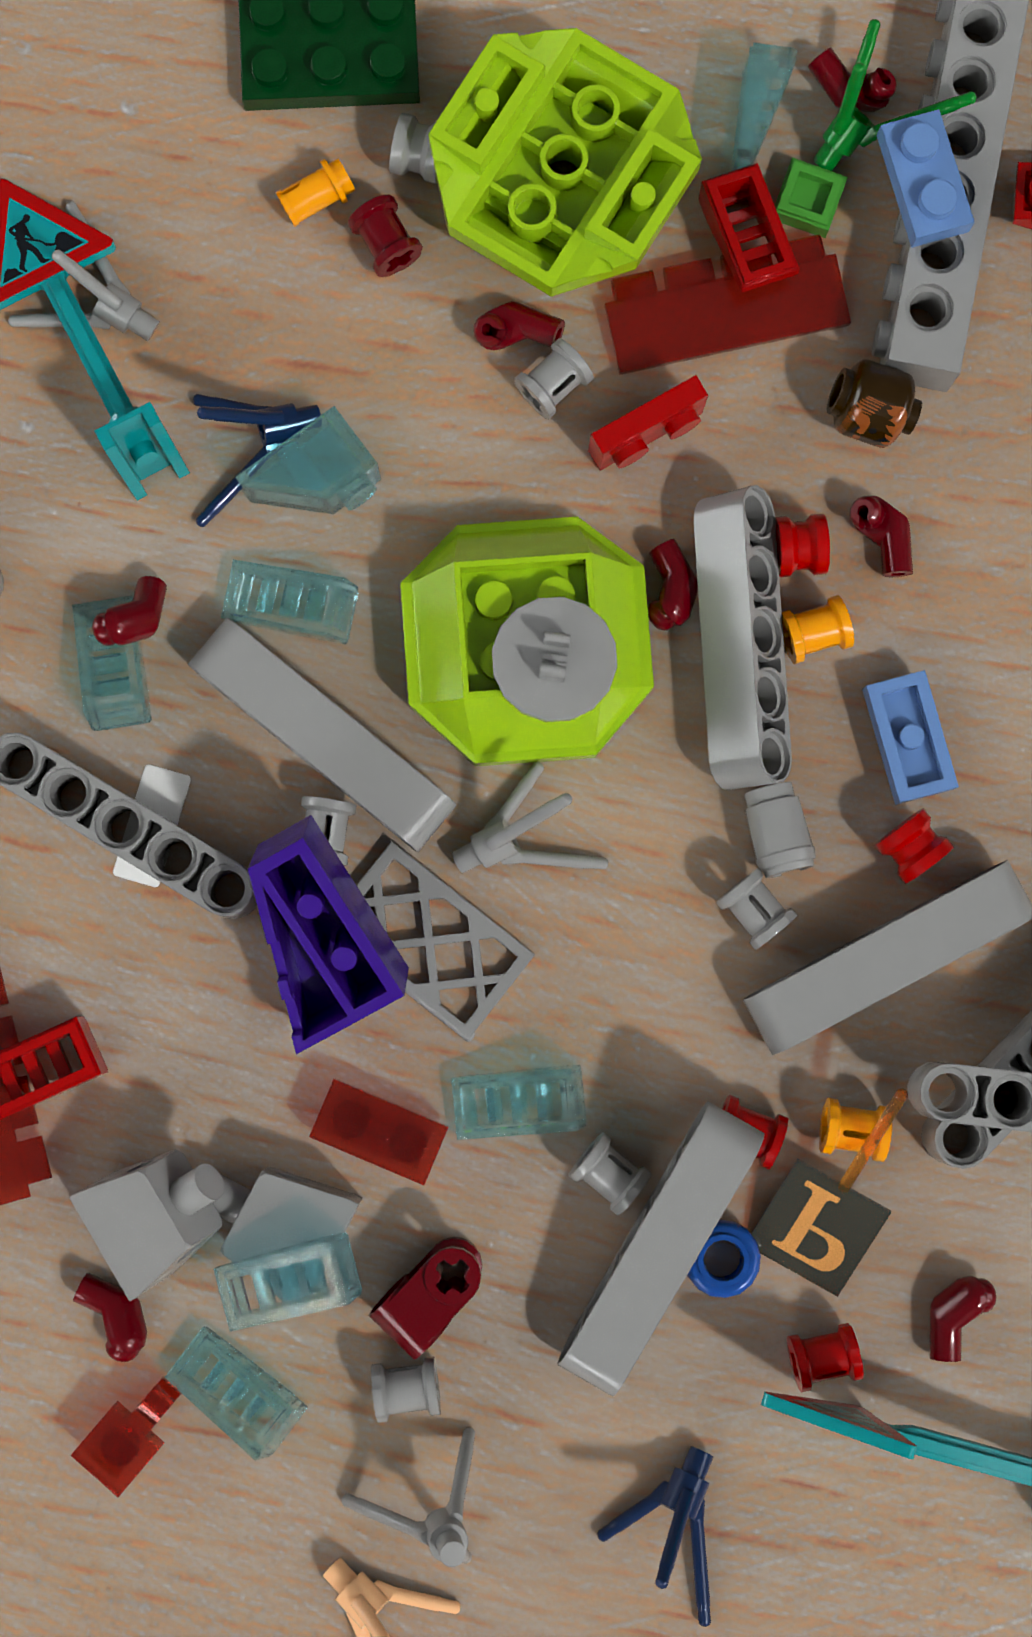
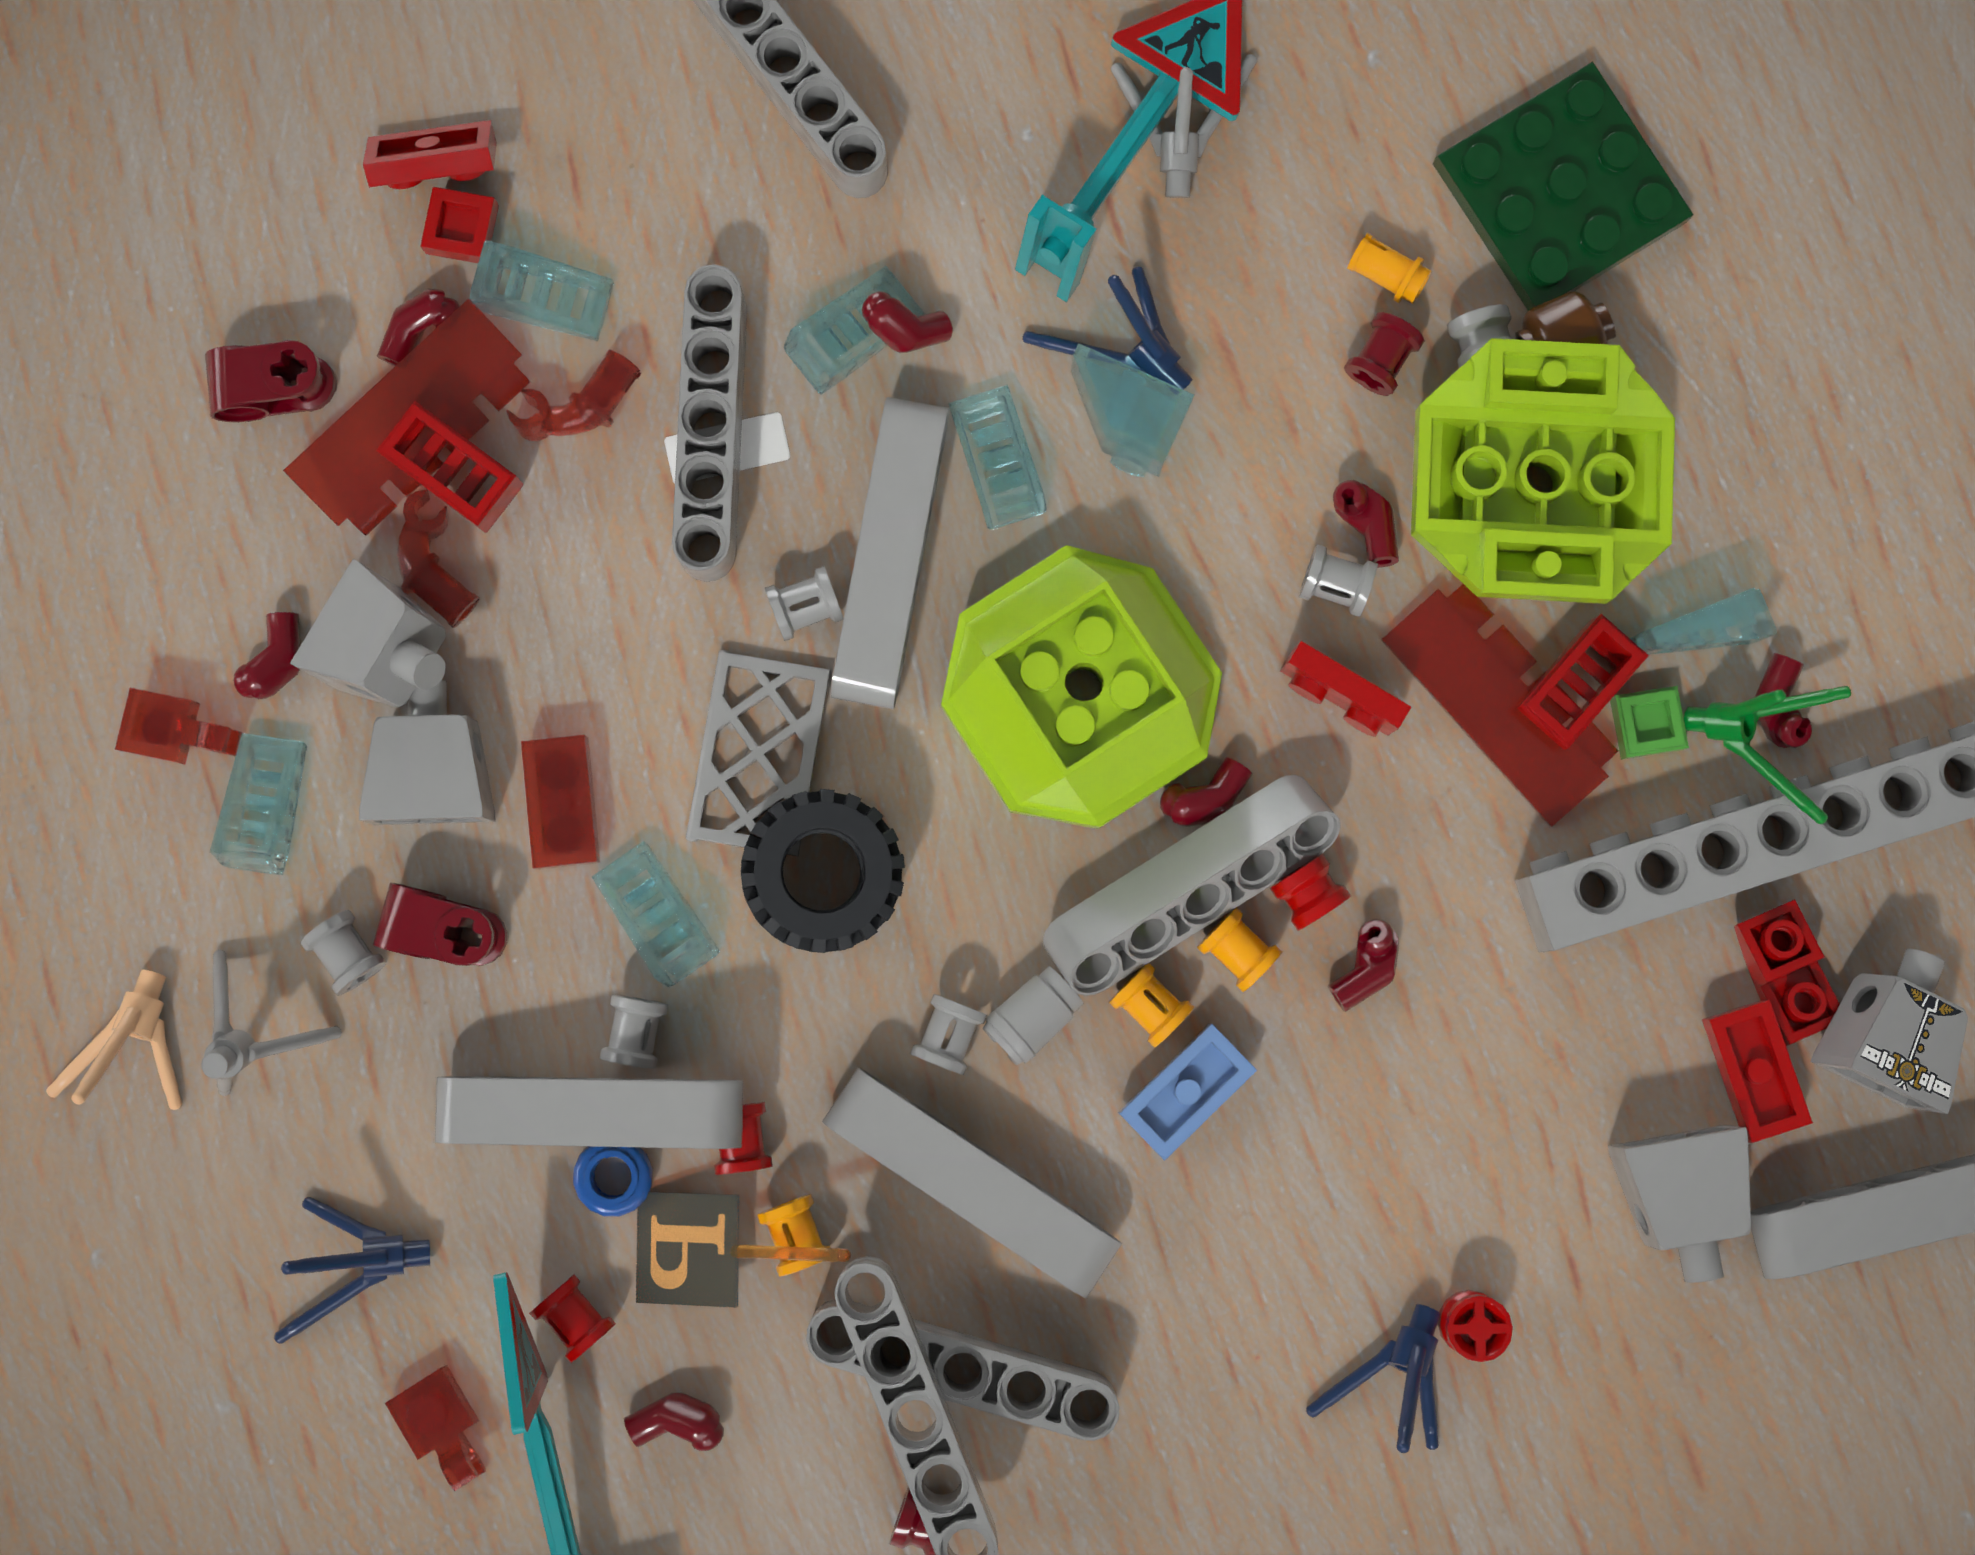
camera: 60 degrees right, 0 degrees up
(51, 927) = (586, 409): none -> clear red piece
(108, 1143) = (421, 568): none -> clear red piece
(323, 935) = (704, 650): dark purple wedge -> none
(338, 1265) = (408, 822): clear light blue slope -> none
(443, 70) = (1568, 320): none -> reddish brown head
(499, 841) = (886, 764): light grey plant -> none
(554, 659) = (1067, 719): light grey piece -> none
(606, 908) = (879, 871): none -> black tyre
(824, 727) = (1151, 1004): none -> light orange bush
(844, 1521) = (434, 1418): none -> clear red plate
(874, 403) = (1483, 887): dark brown head -> none
(914, 846) = (1087, 1149): red wheel -> none
(925, 178) = (1719, 817): medium blue plate -> none

